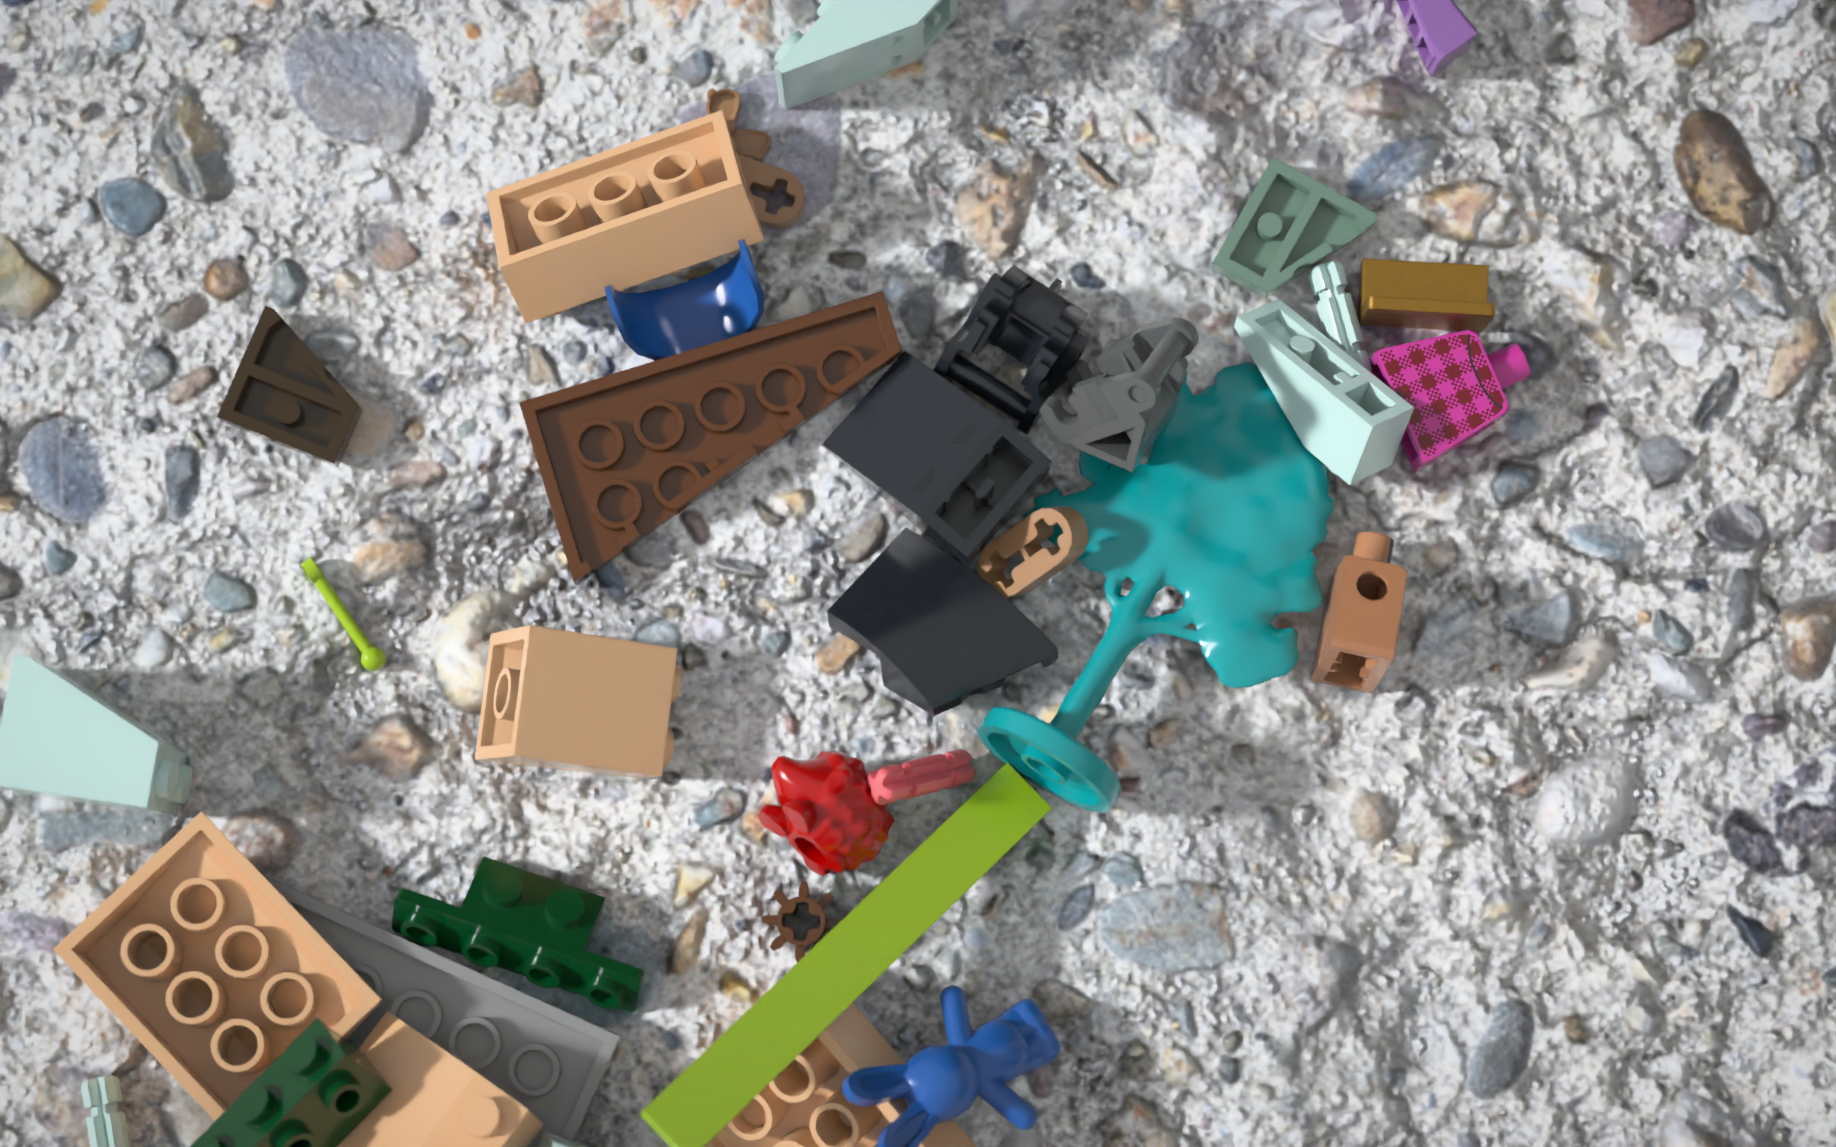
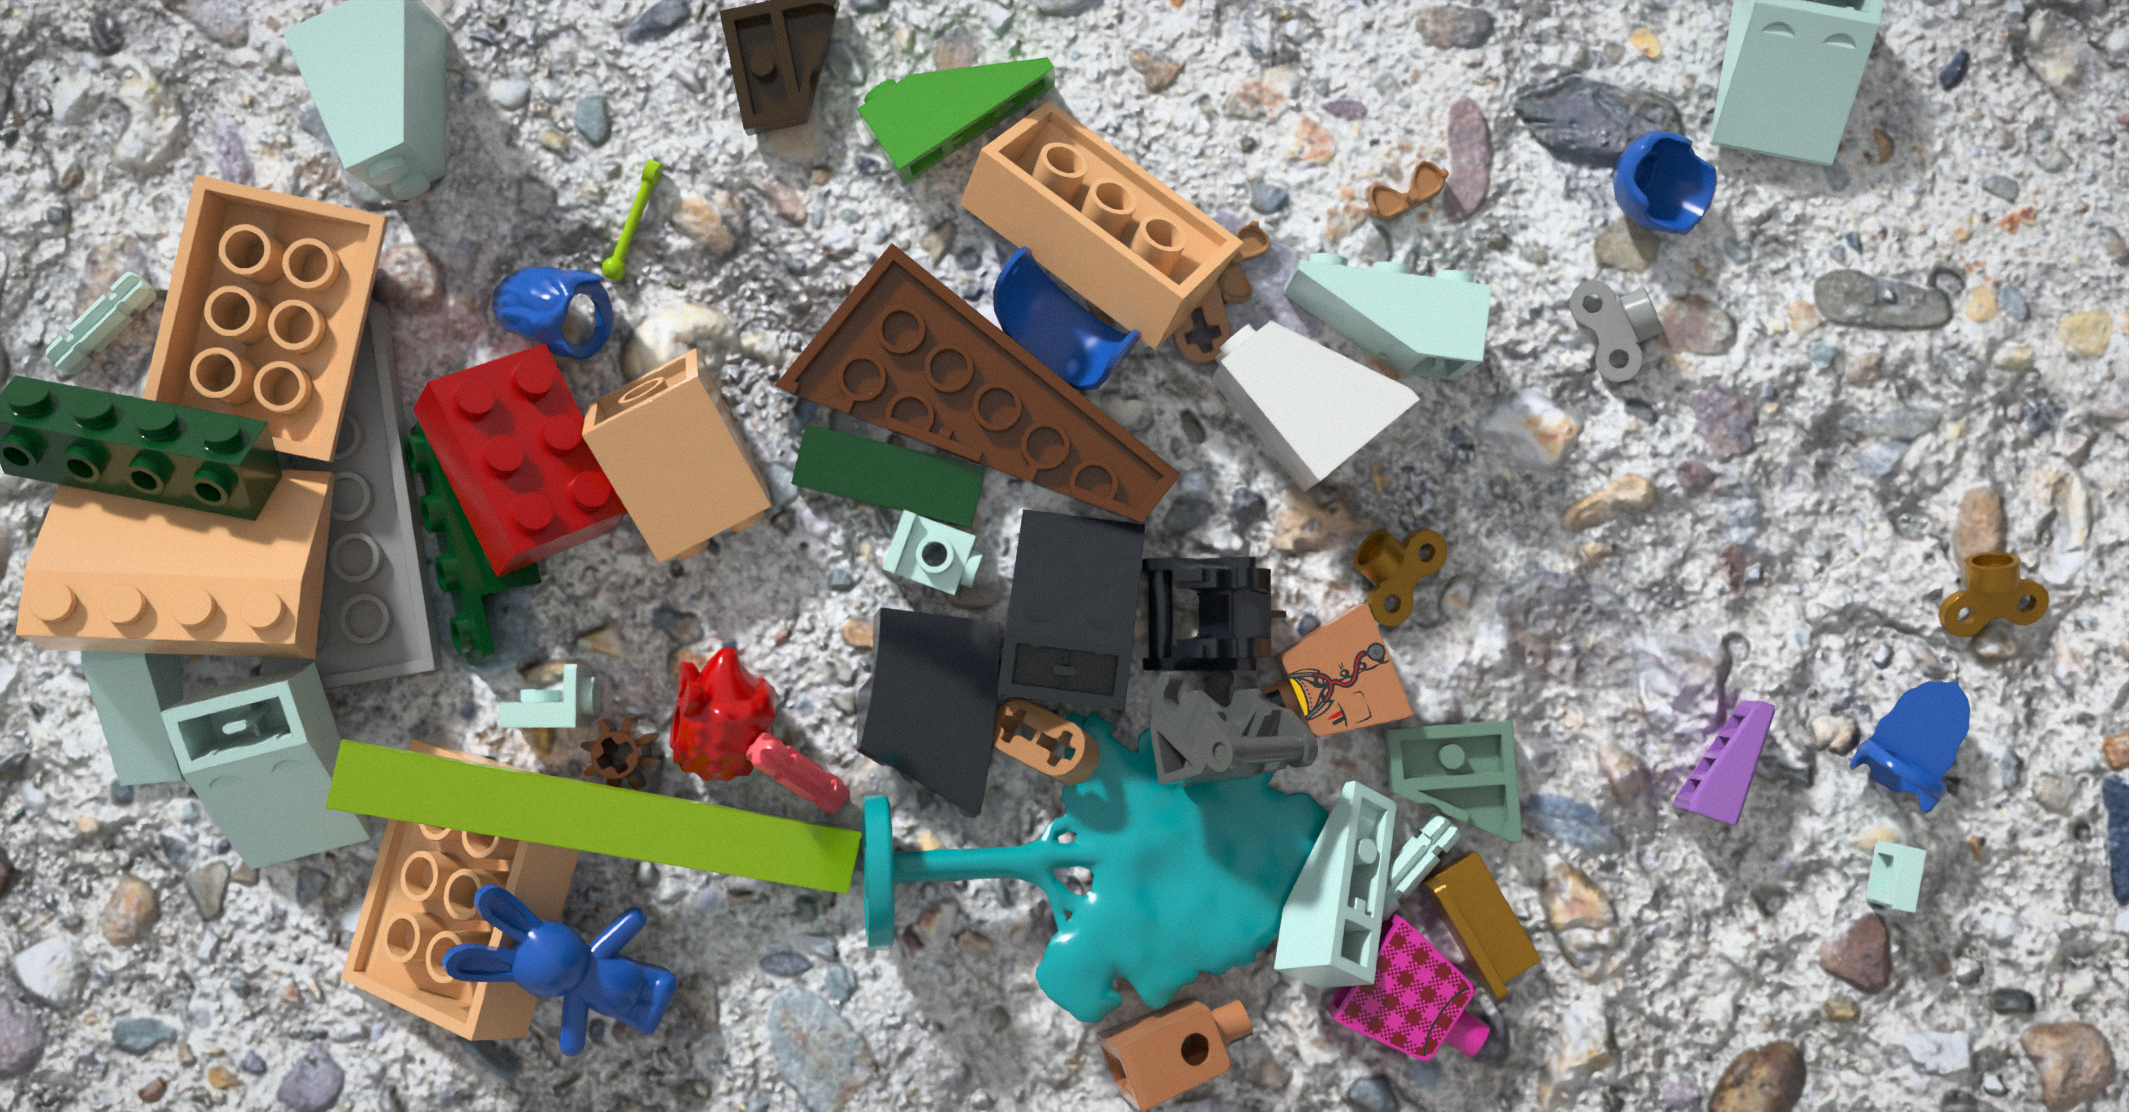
camera: 60 degrees right, 5 degrees up
(368, 732) = (537, 302): none -> blue piece
(433, 291) = (944, 110): none -> bright green slope
(491, 834) = (518, 458): none -> red brick
(716, 540) = (888, 476): none -> dark green tile
(720, 964) = (543, 707): none -> light aqua bracket
(804, 566) = (908, 549): none -> light aqua brick
(891, 145) = (1305, 399): none -> white slope
(1083, 169) = (1397, 569): none -> pearl gold piece
(1141, 269) = (1340, 676): none -> nougat torso

